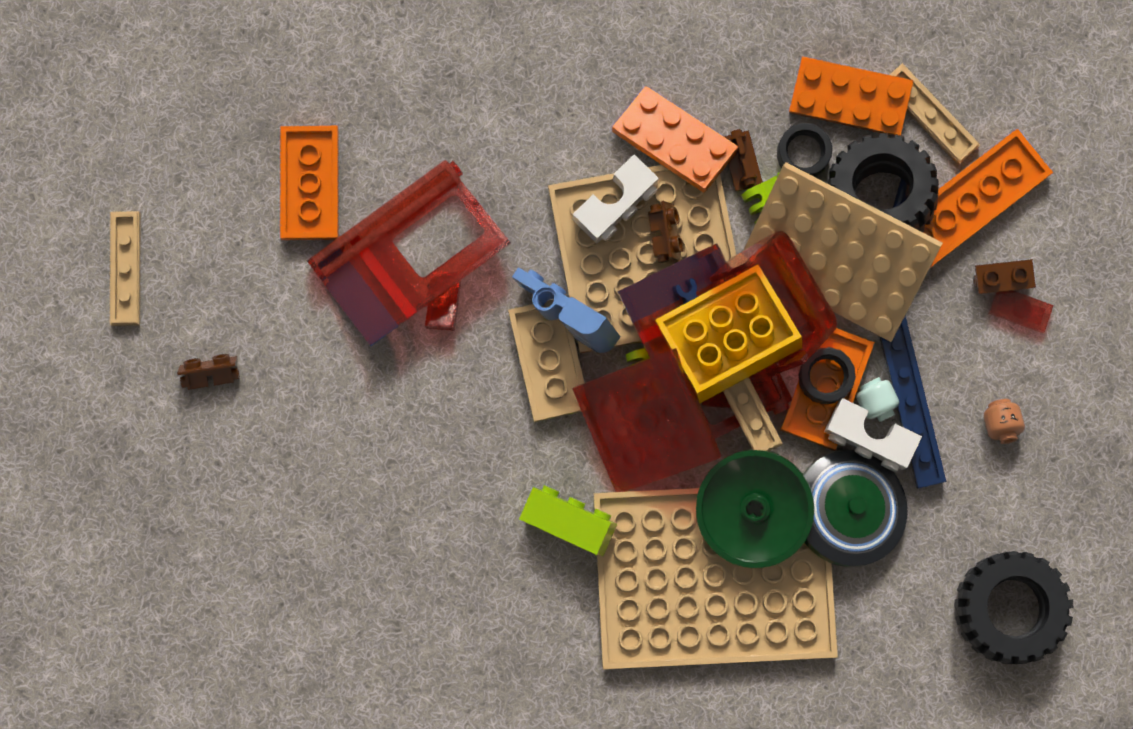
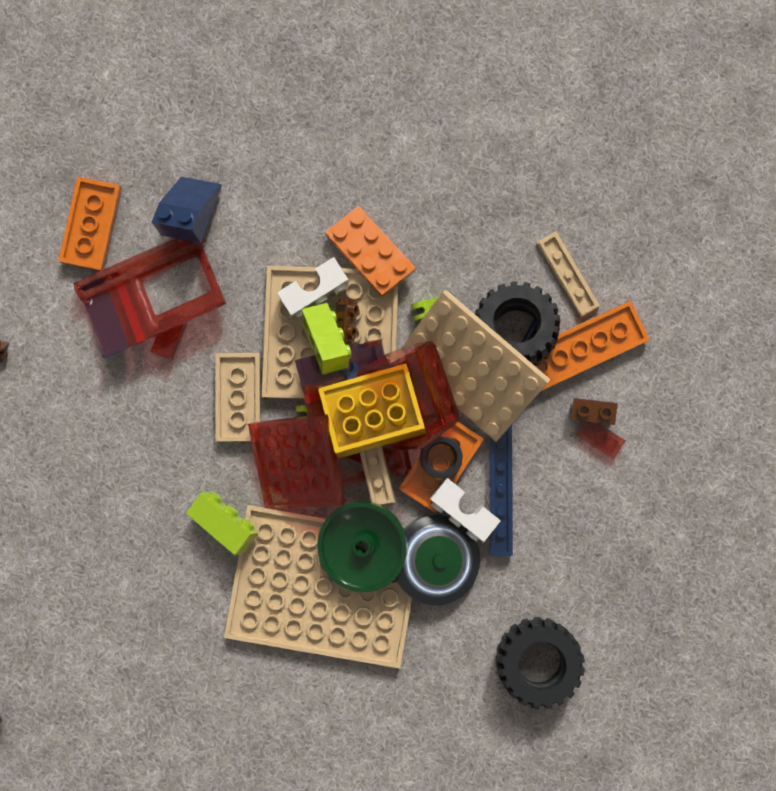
camera: 15 degrees right, 5 degrees up
(432, 136) = (186, 209): none -> dark blue slope
(580, 320) = (255, 367): medium blue plate -> none
(648, 256) = (326, 338): none -> lime brick
(744, 164) = (418, 281): reddish brown hinge -> none
(809, 130) = (477, 269): black tyre -> none
(851, 96) = (511, 248): orange plate -> none
(878, 399) = (476, 482): light aqua head -> none
(1004, 421) = (567, 520): nougat head -> none

